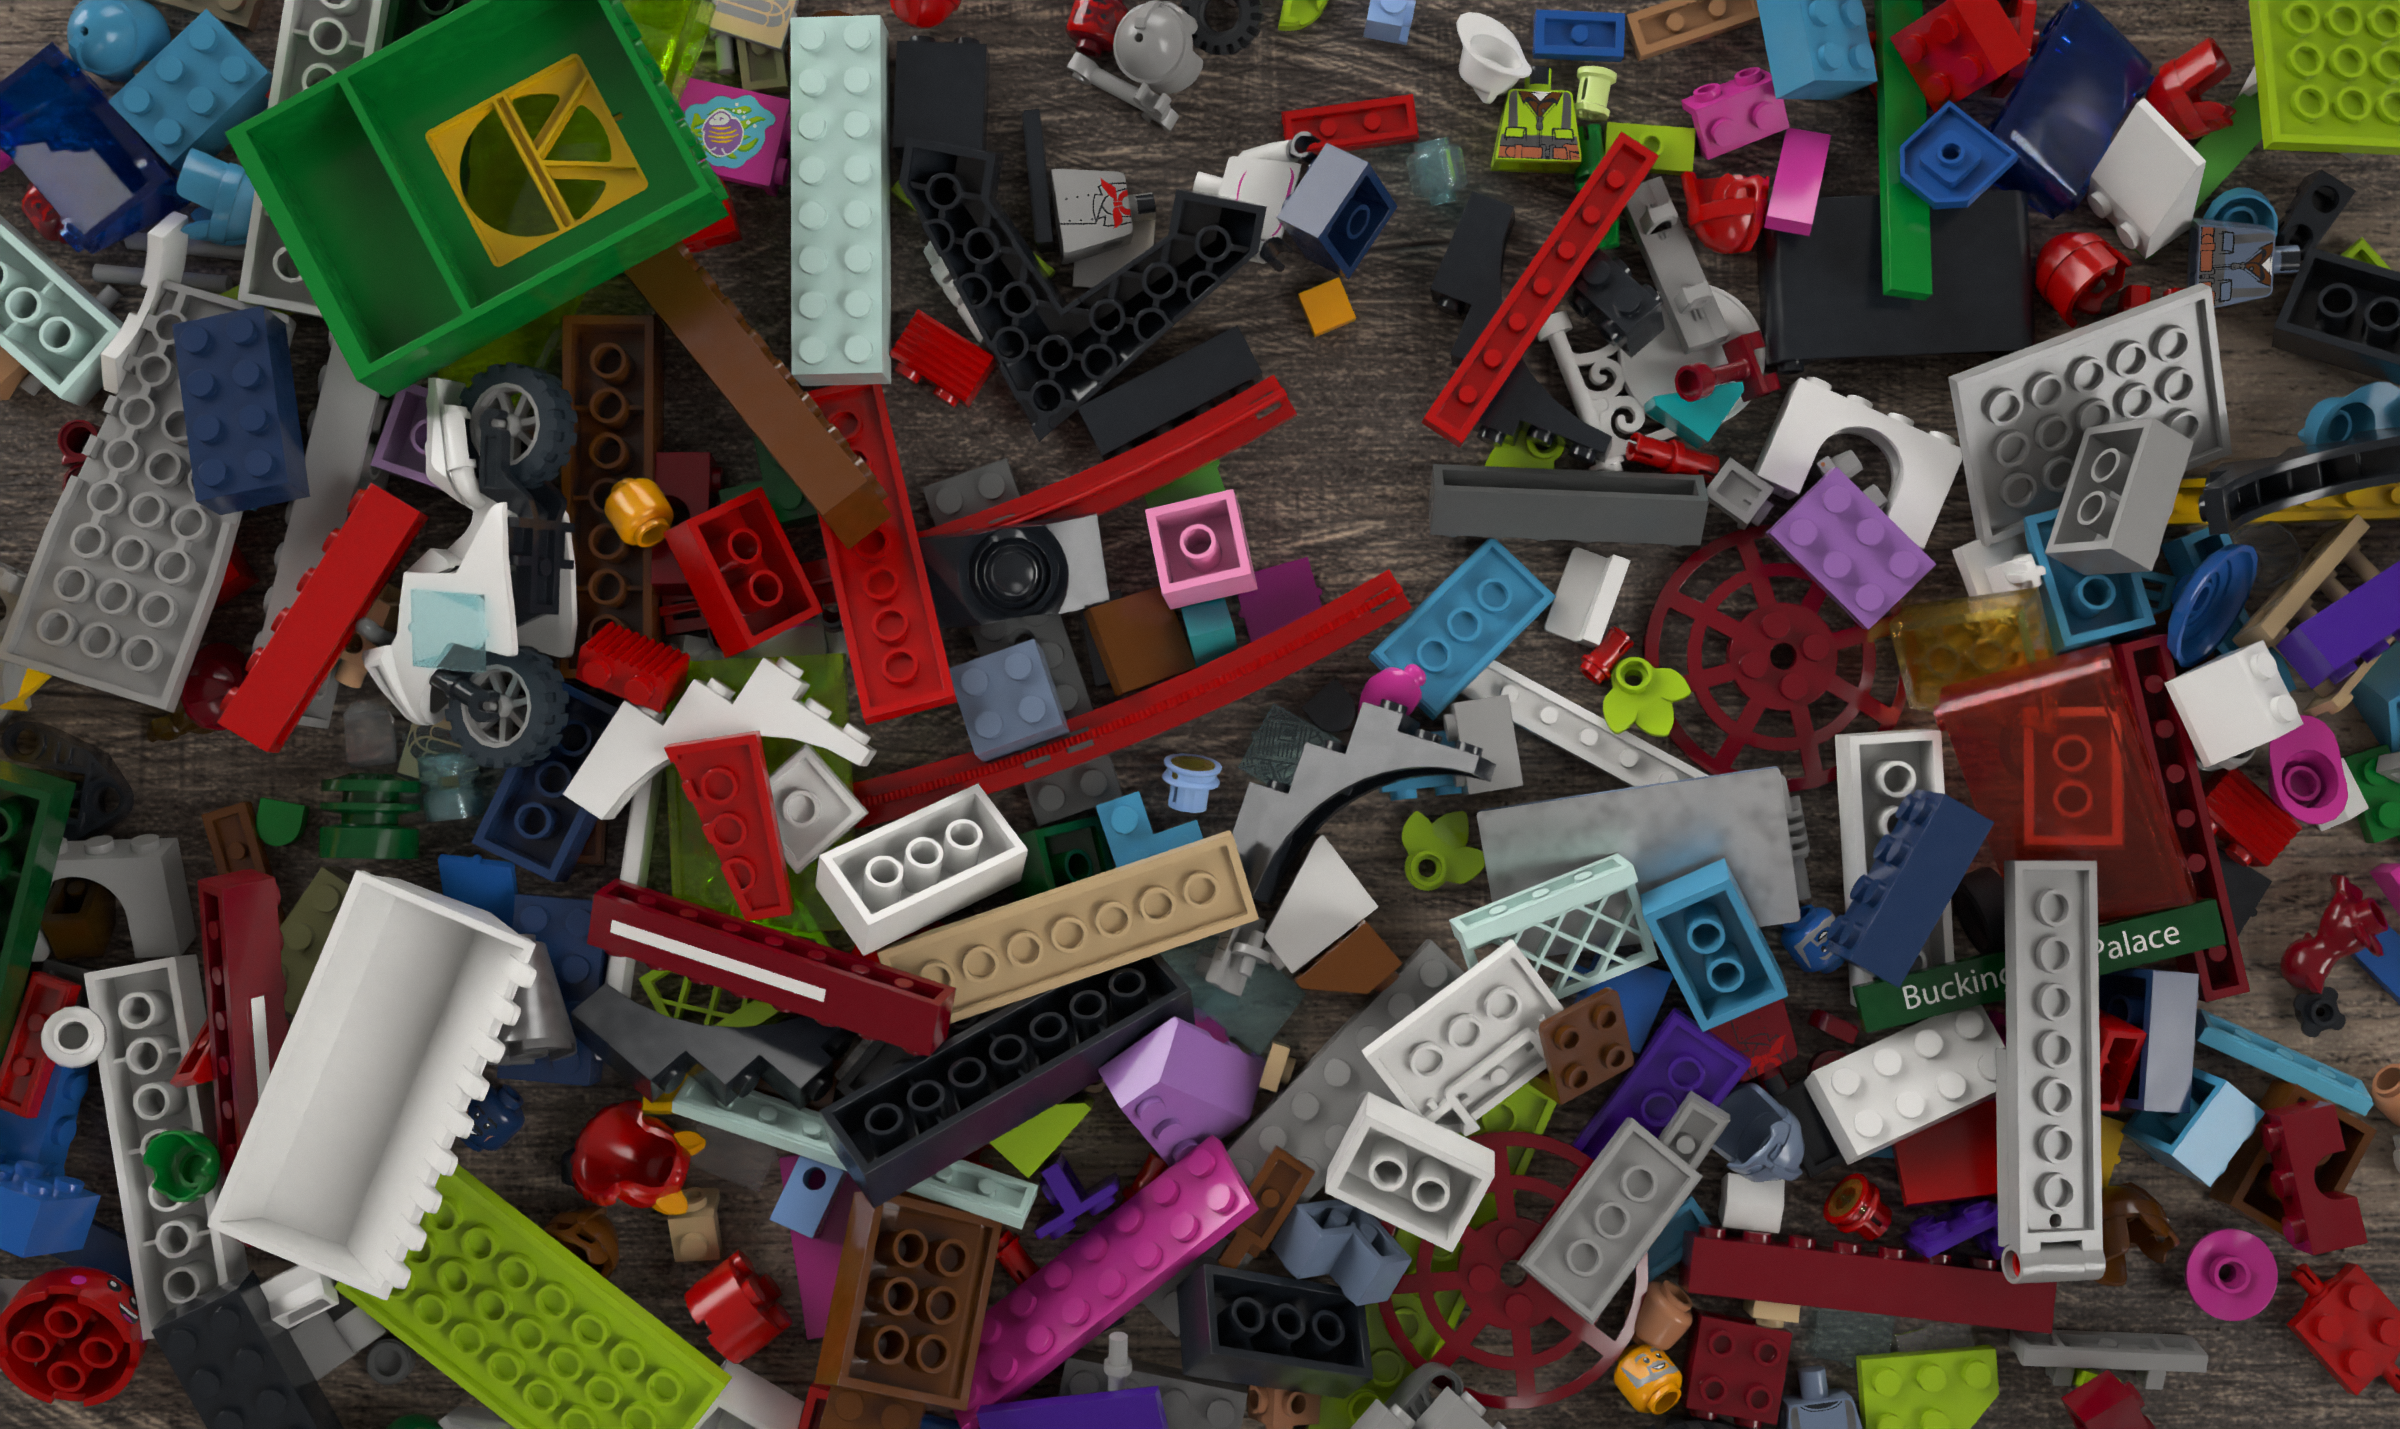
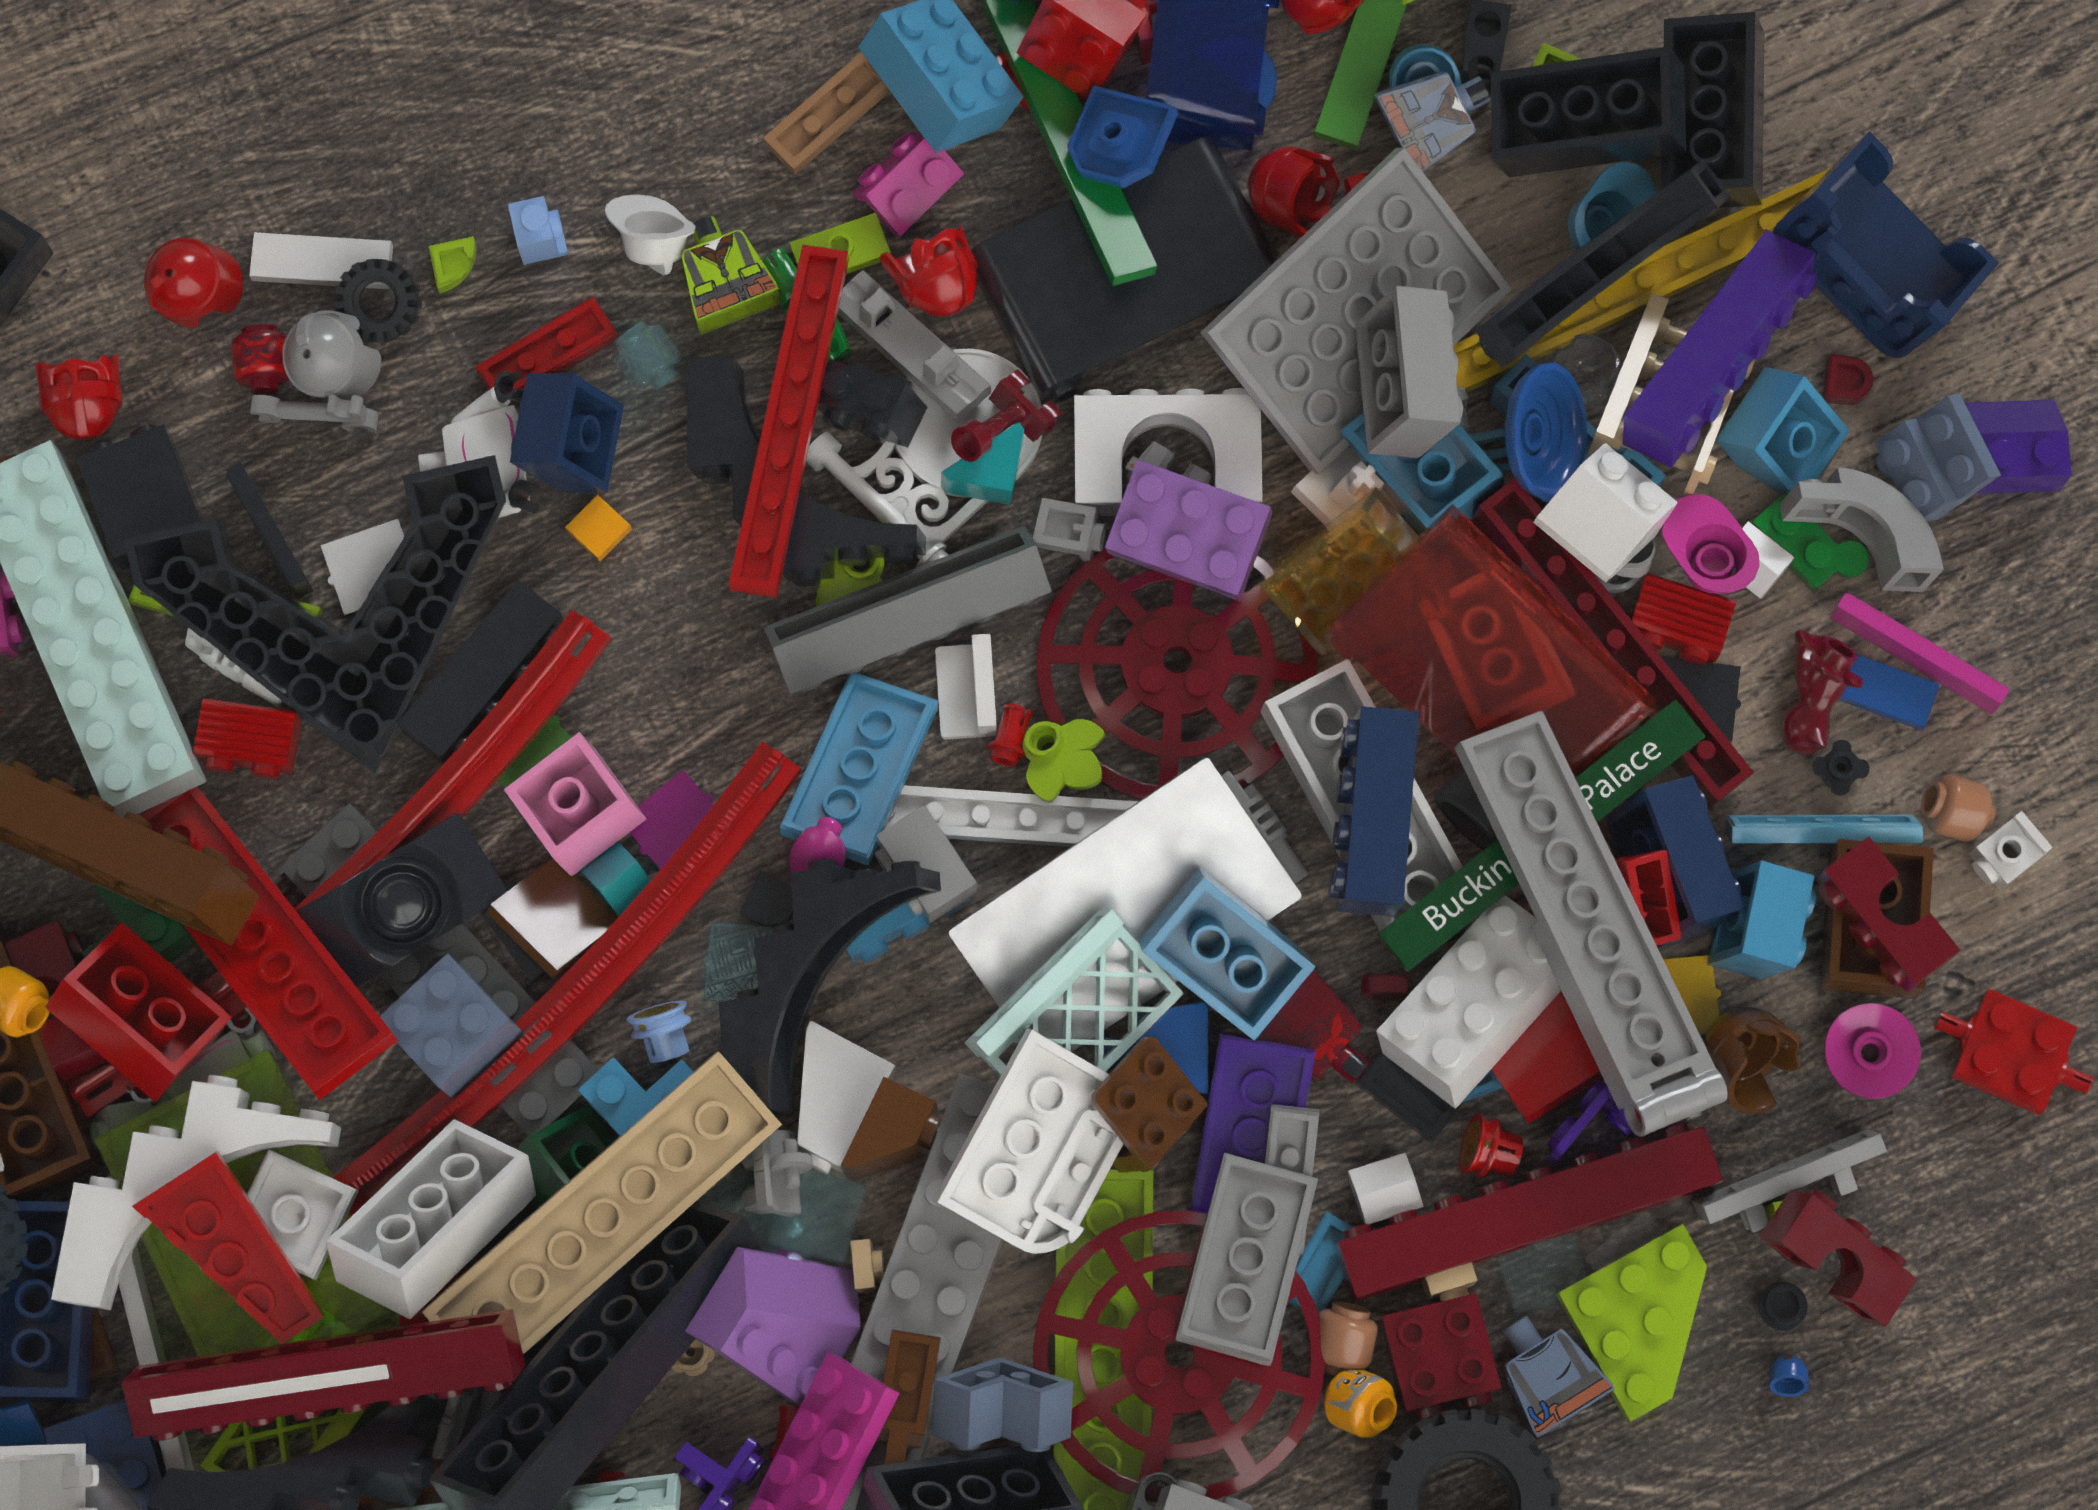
camera: 20 degrees left, 10 degrees down
(633, 667) = (69, 1149): red brick -> none
(1038, 1137) = (659, 1425): lime slope -> none
(1095, 211) = (335, 535): light grey torso -> none
(1410, 1172) = (1029, 1293): white brick -> none
(1444, 845) = (934, 984): lime plate -> none
(1578, 35) = (727, 175): blue plate -> none
(1593, 93) = (764, 222): yellowish green bush -> none
(1671, 457) = (987, 522): red pin -> none
(1762, 1137) = (1359, 1120): sand blue helmet -> none
(1797, 181) = (990, 218): dark pink tile -> none
(1808, 939) = (1321, 921): blue head -> none
(2147, 181) = (1311, 81): white slope -> none

